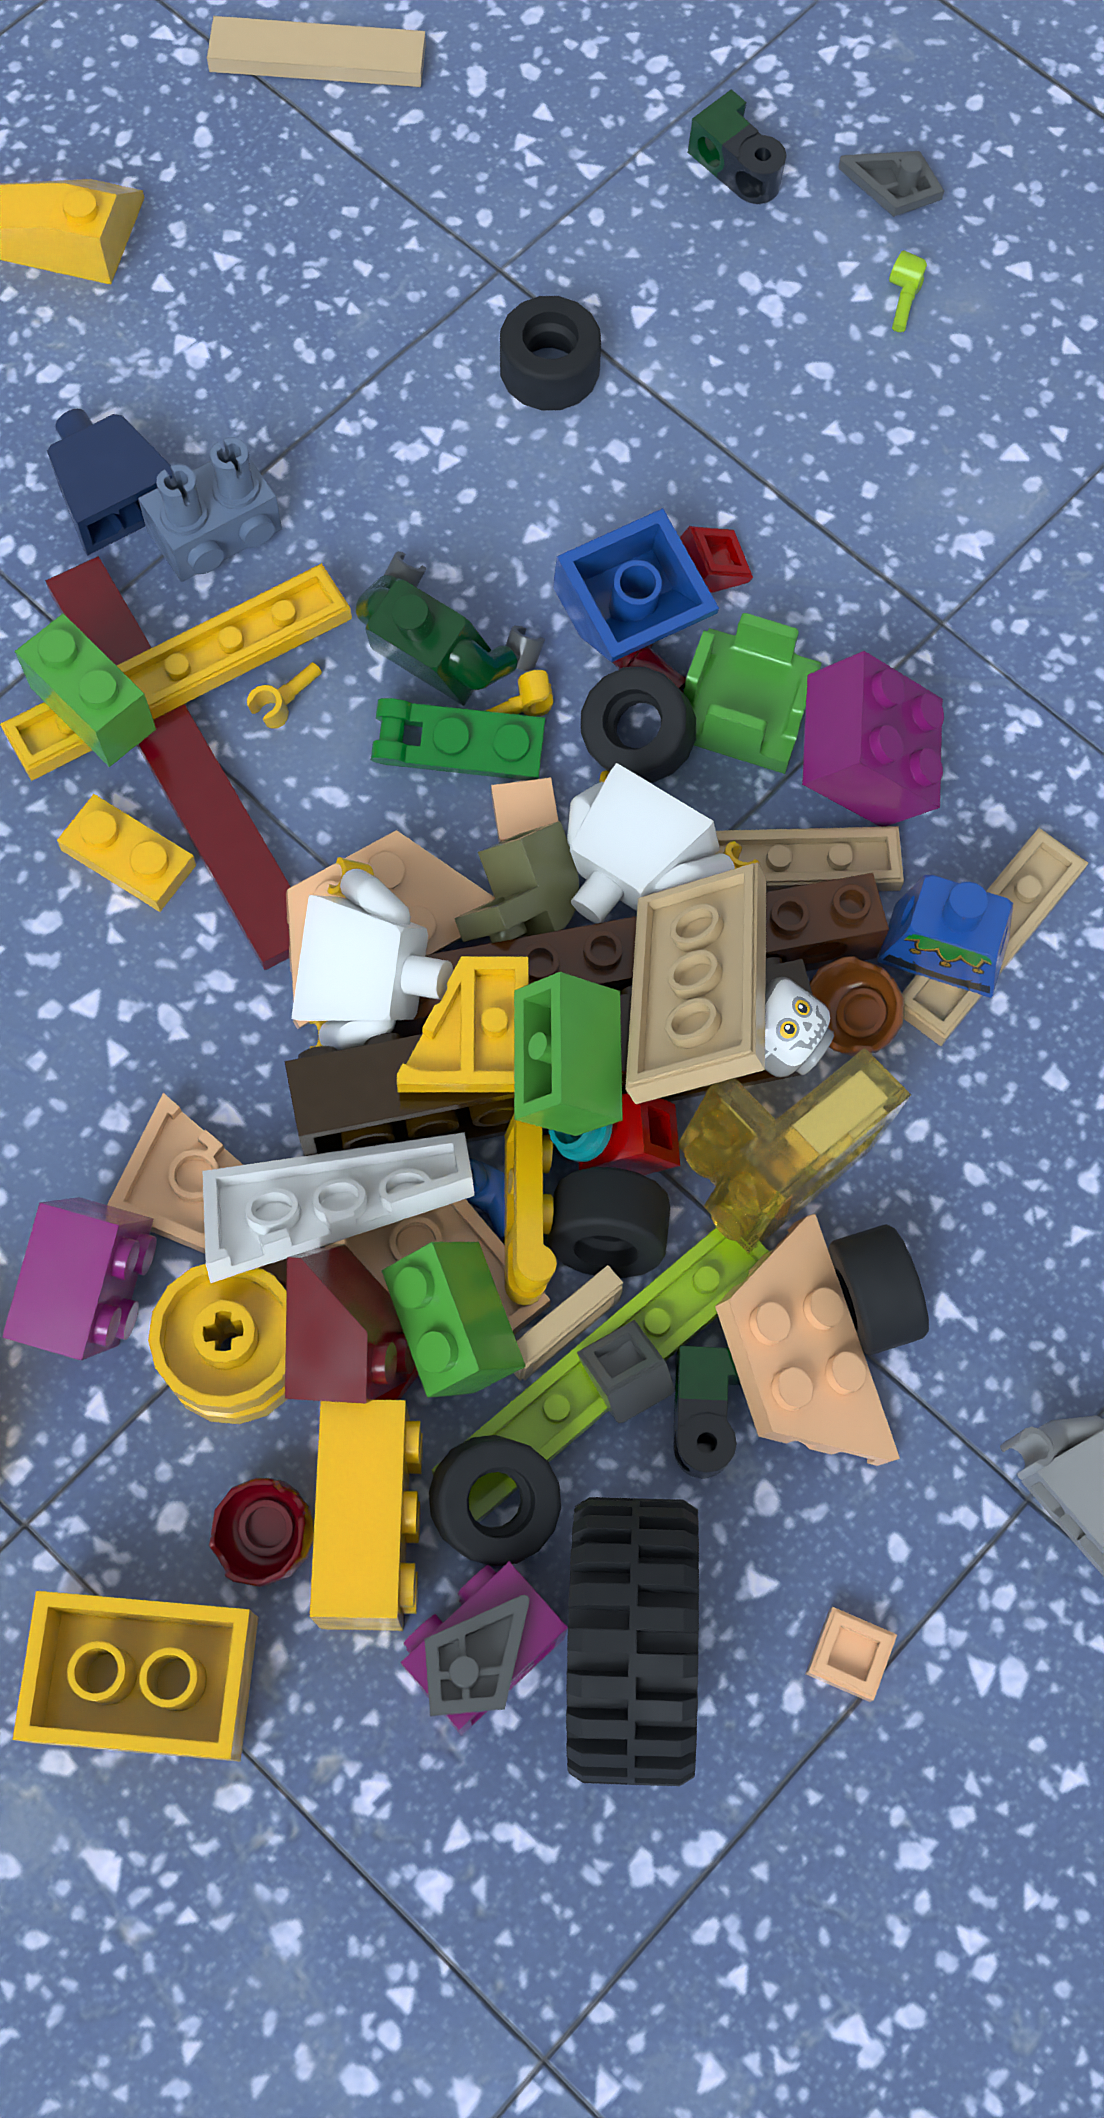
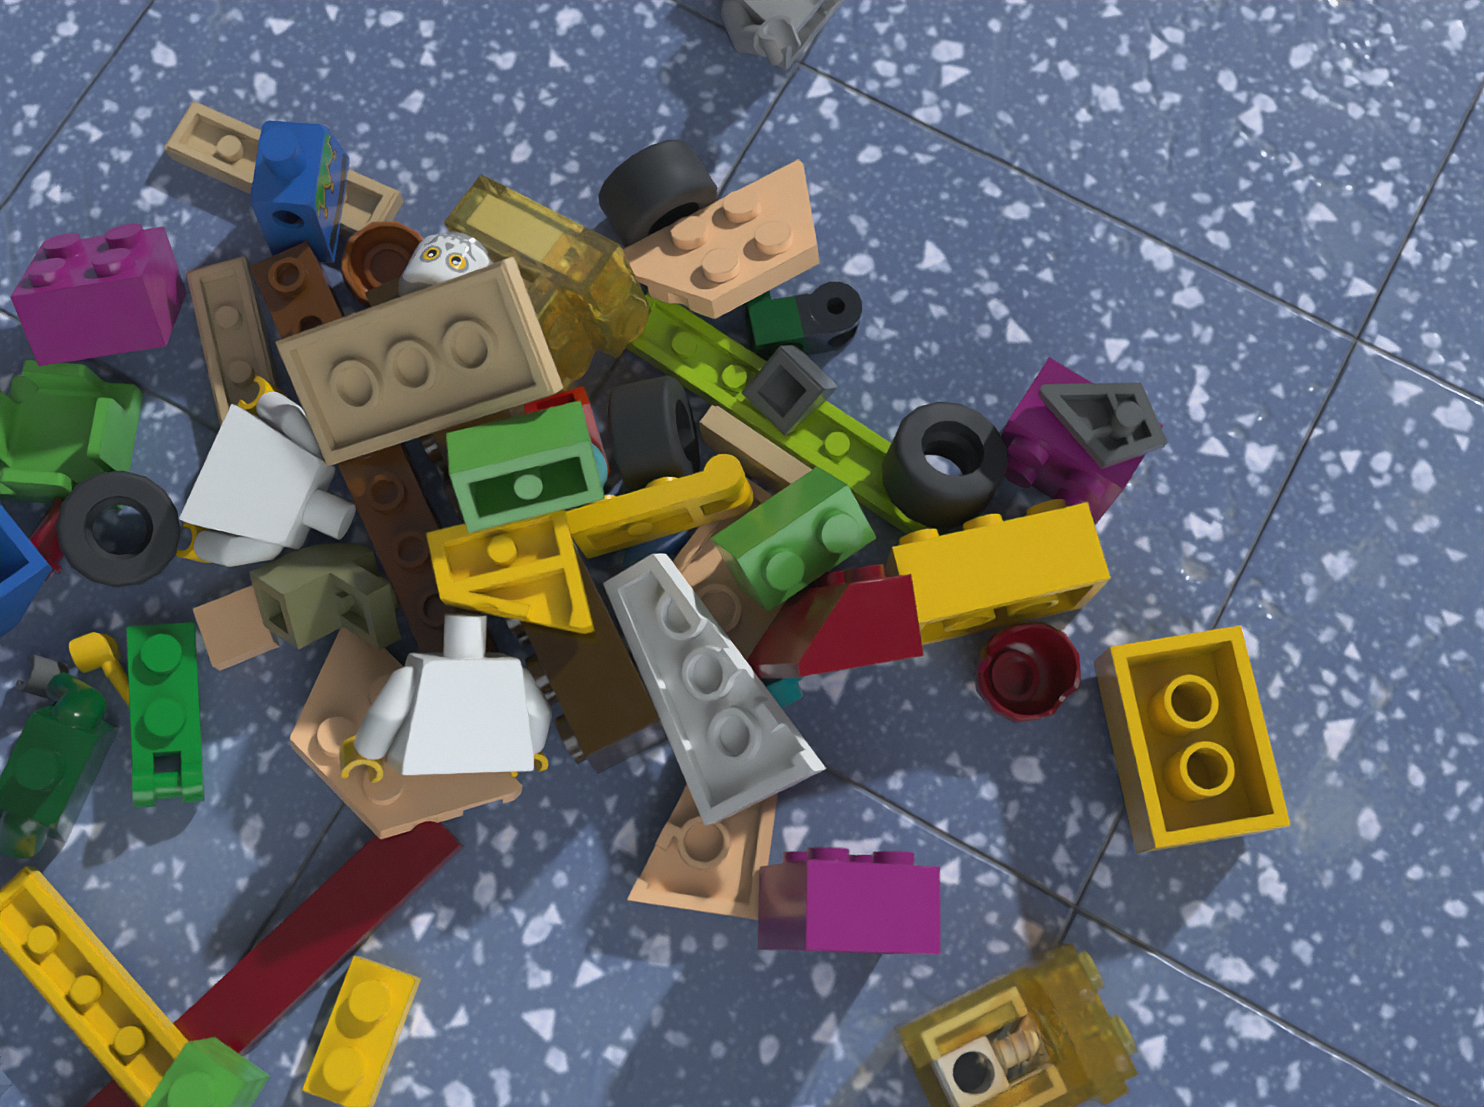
camera: 100 degrees left, 5 degrees up
(194, 1322) = (895, 729): yellow wheel -> none
(282, 696) = (139, 918): yellow hand -> none
(633, 1642) = (1038, 287): black tyre -> none
(851, 1654) = (970, 170): light nougat tile -> none

